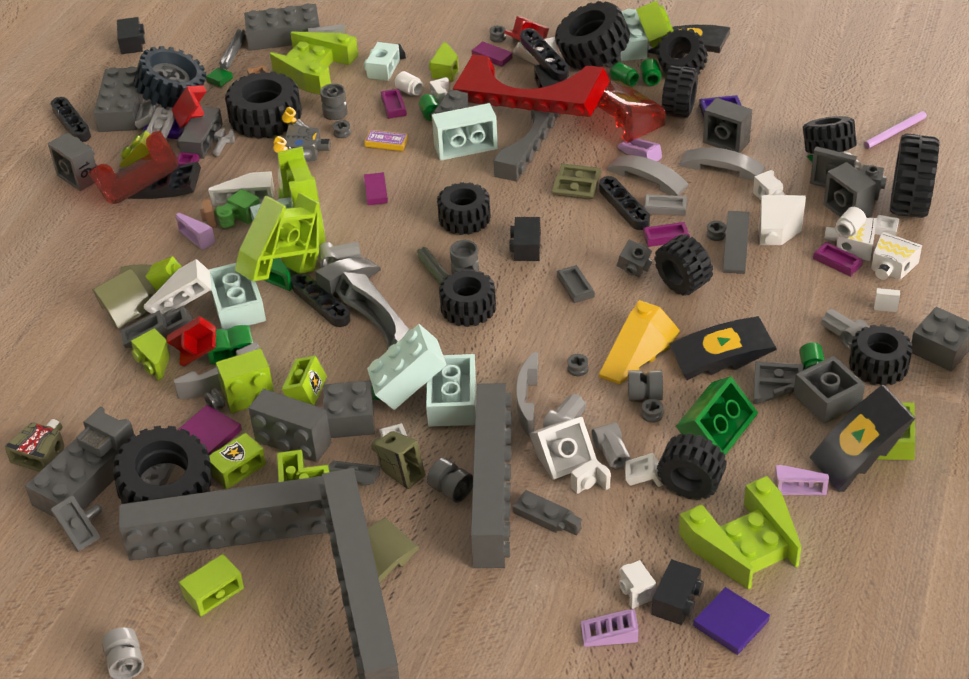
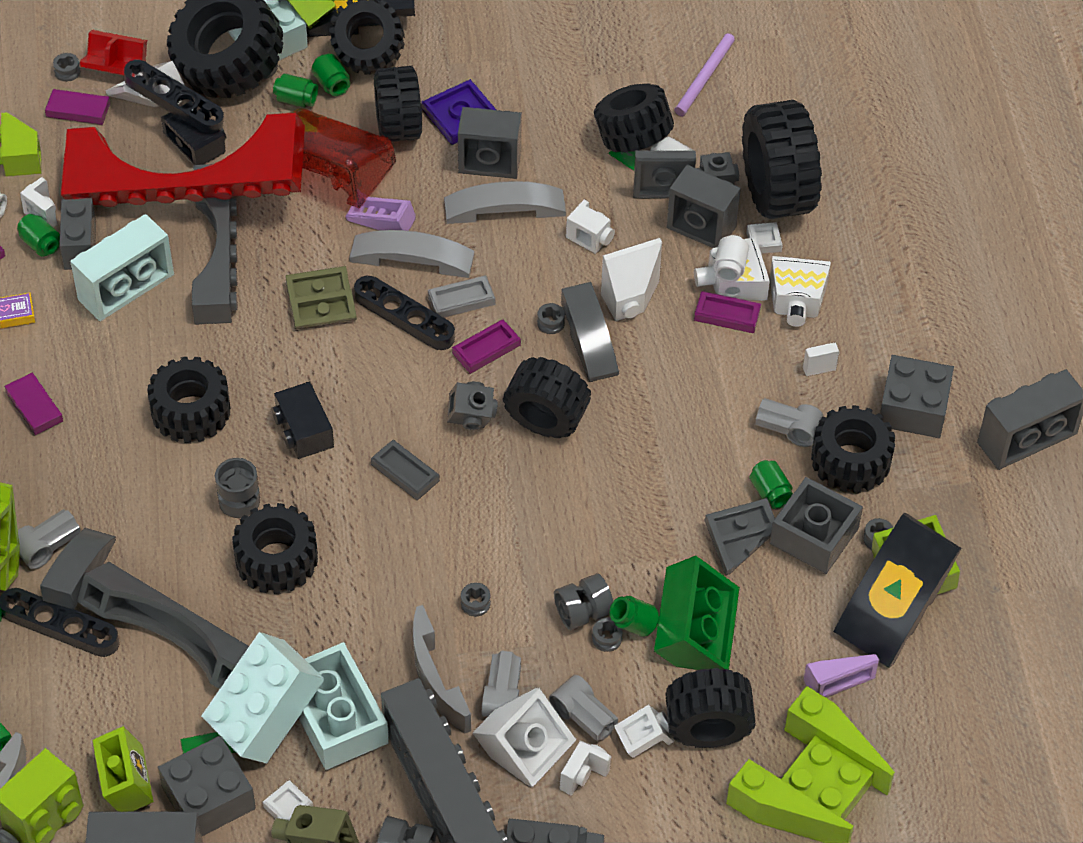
camera: 30 degrees left, 10 degrees up
(432, 264) = (196, 511): dark grey axle -> none
(640, 340) = (542, 532): yellow wedge -> none
(673, 401) = (634, 615): none -> green brick
(722, 346) = (651, 505): black slope -> none

